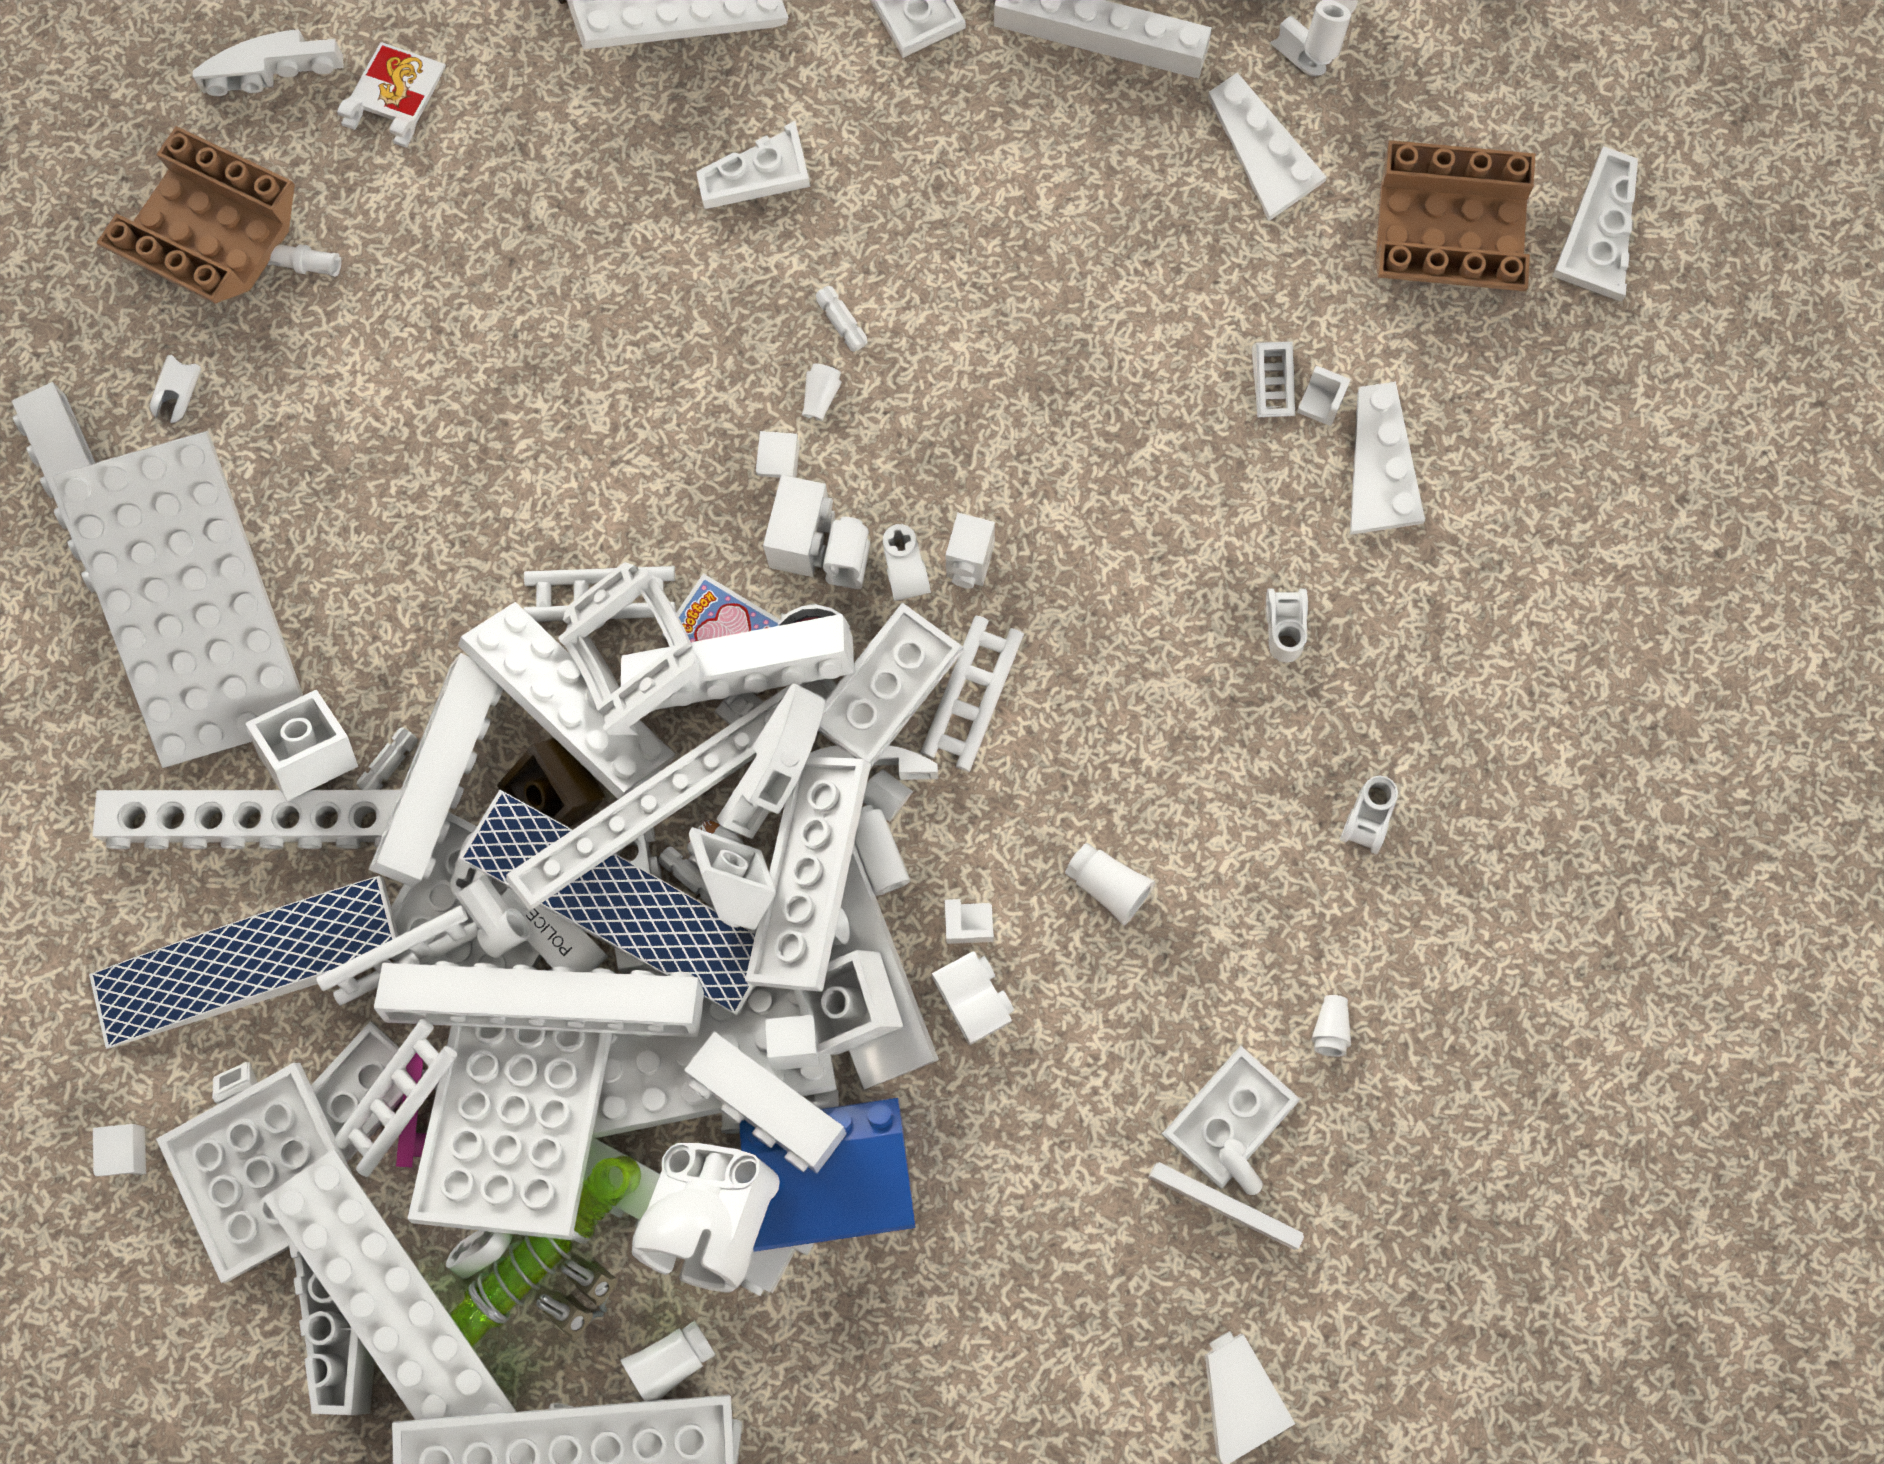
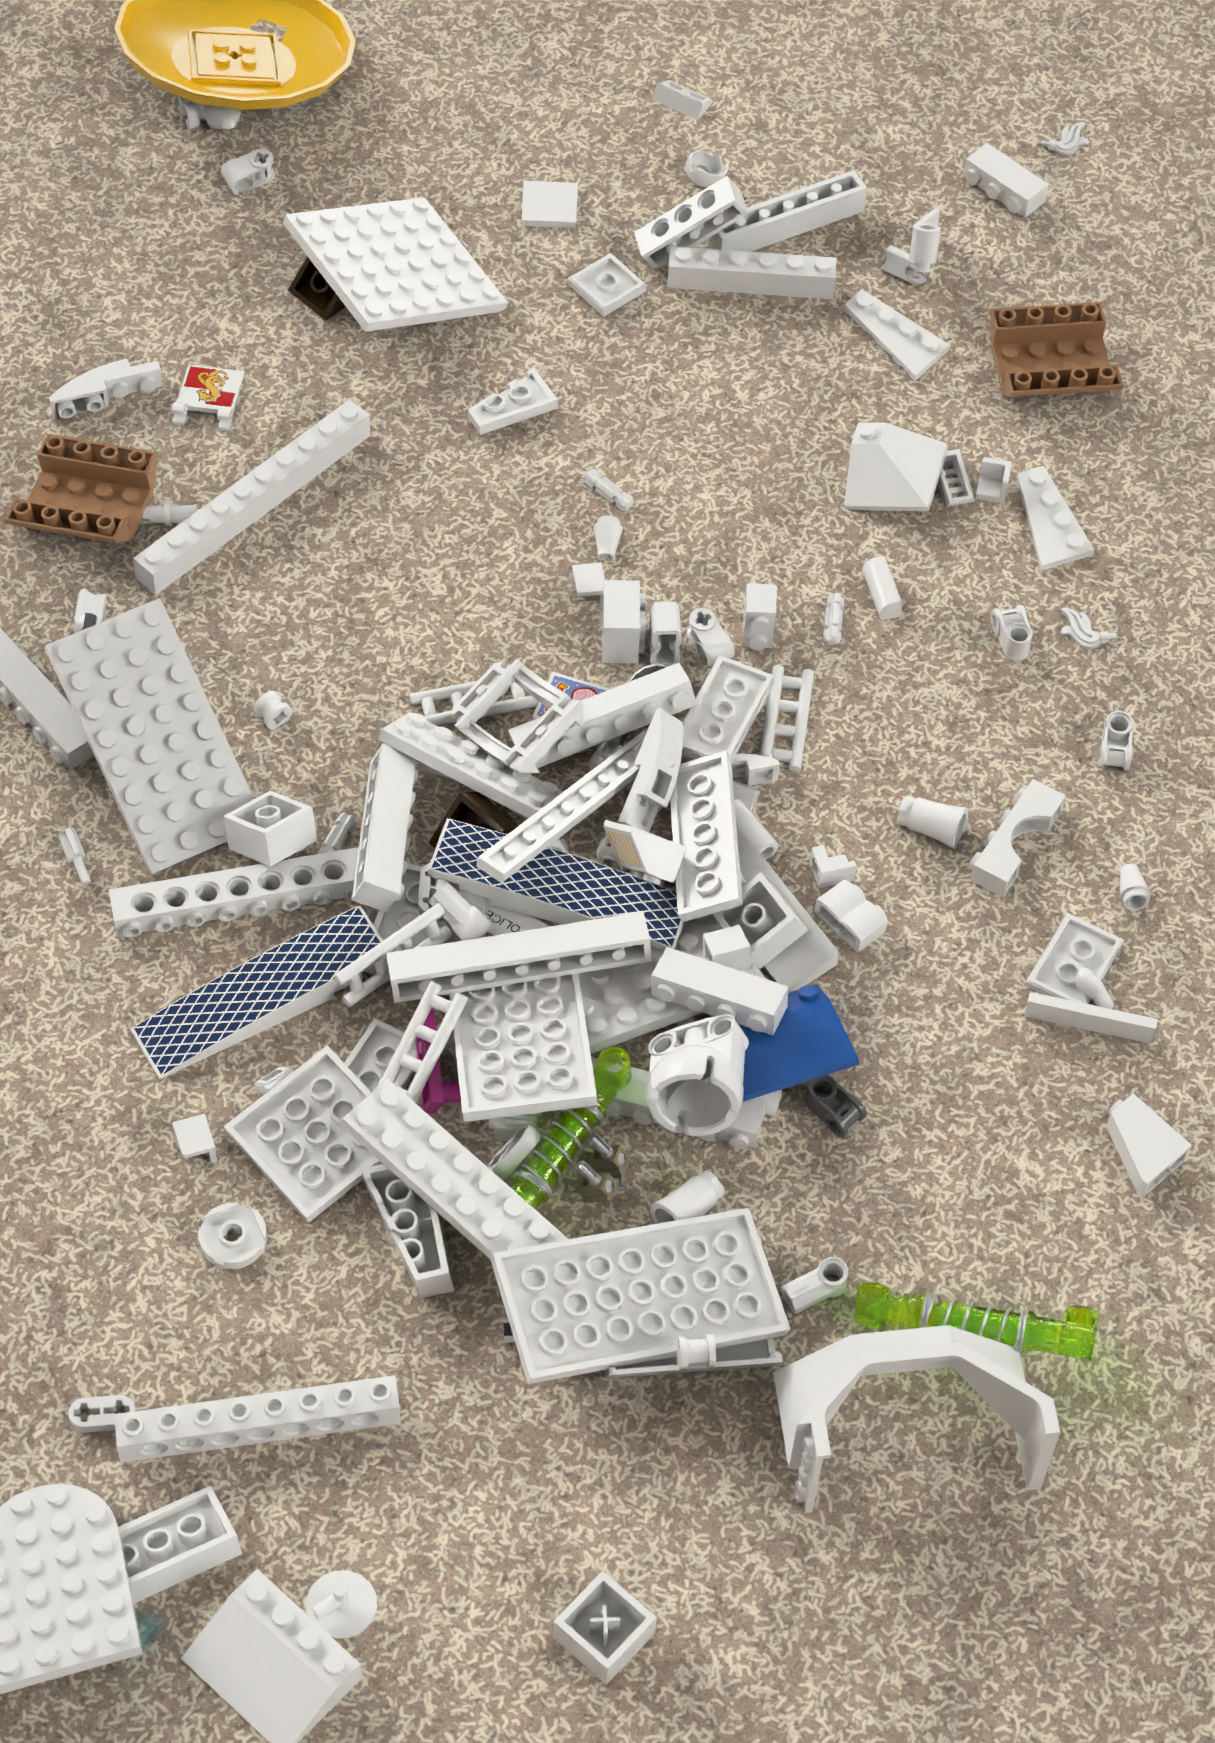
camera: 20 degrees left, 20 degrees down
(81, 720) = (74, 852): none -> white axle
(117, 1270) = (234, 1254): none -> white plate
(355, 566) = (272, 710): none -> white wheel
(404, 254) = (251, 497): none -> white brick
(879, 1266) = (836, 1110): none -> dark grey piece
(1068, 560) = (833, 619): none -> white axle
(1139, 529) = (882, 588): none -> white brick
(1199, 358) = (892, 469): none -> white slope
(1240, 893) = (1034, 810): none -> white arch
(1376, 635) = (1081, 630): none -> white piece
(1599, 237) = (1162, 350): white wing -> none

